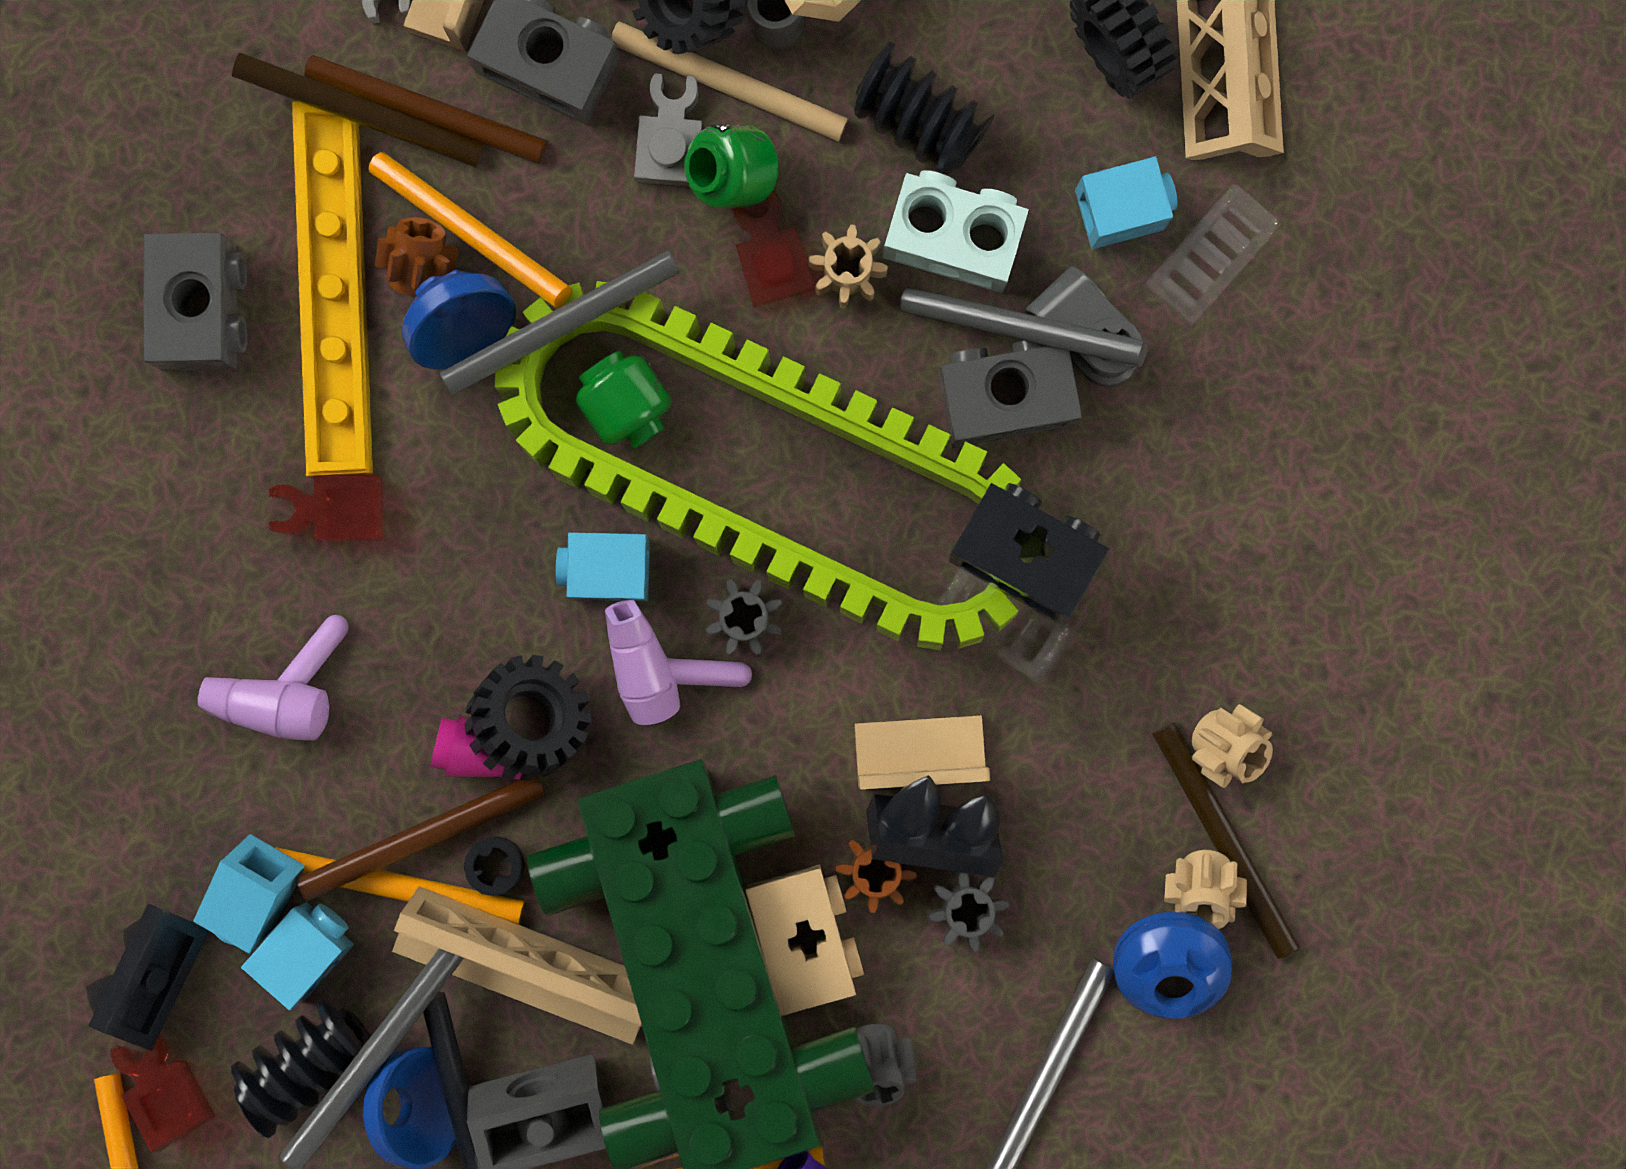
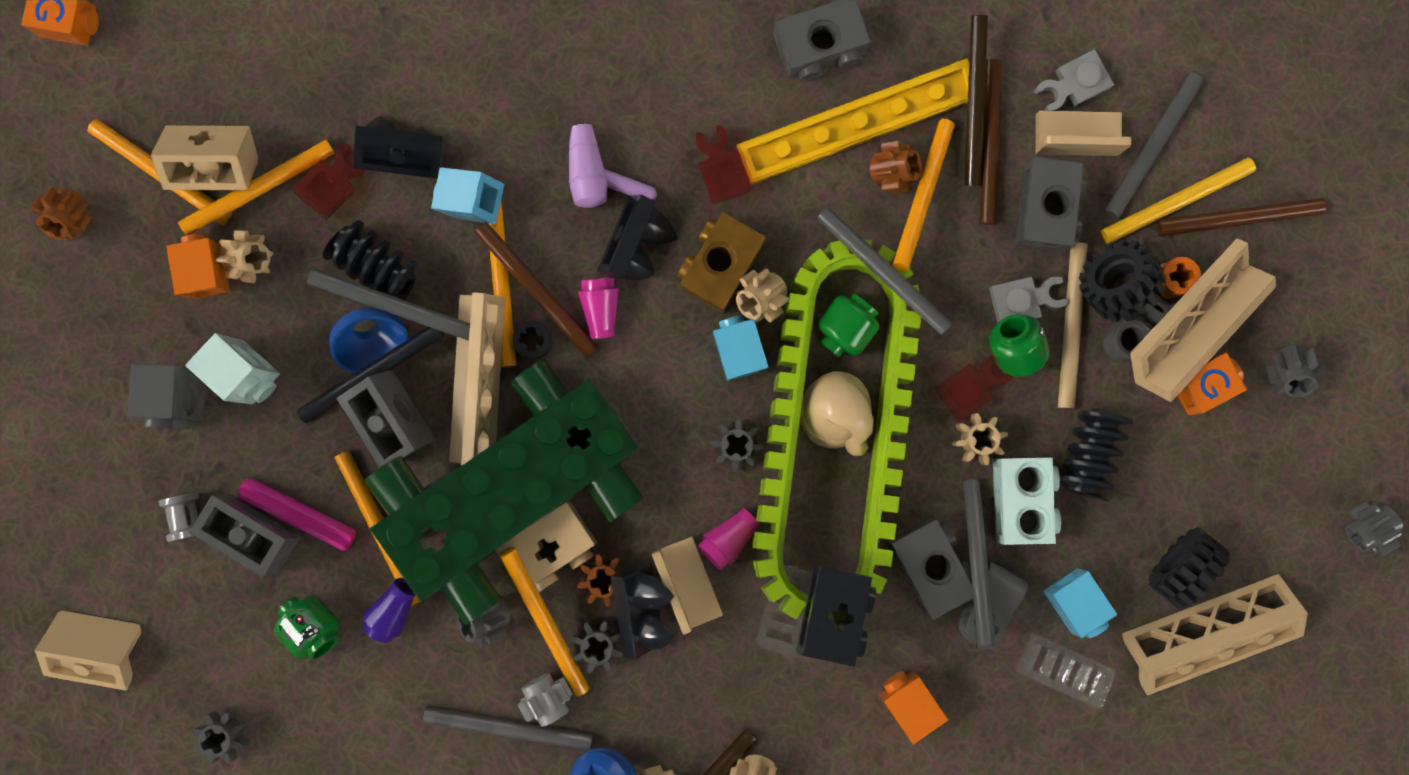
camera: 75 degrees right, 0 degrees up
(299, 953) = (440, 238): medium azure brick -> none
(374, 657) = (636, 223): none -> black tile
(447, 522) = (724, 236): none -> pearl gold brick
(456, 318) = (865, 205): blue piece -> none
(538, 510) = (761, 295): none -> tan gear
(548, 689) = (652, 337): black tyre -> none
(648, 677) = (679, 399): lavender piece -> none
(744, 456) = (838, 413): none -> tan piece
(875, 673) = (728, 539): none -> dark pink cone
(906, 976) = (544, 621): none -> light orange bar
(1020, 1011) = (545, 699): none -> light grey gear
(1193, 486) = (912, 705): none -> orange brick

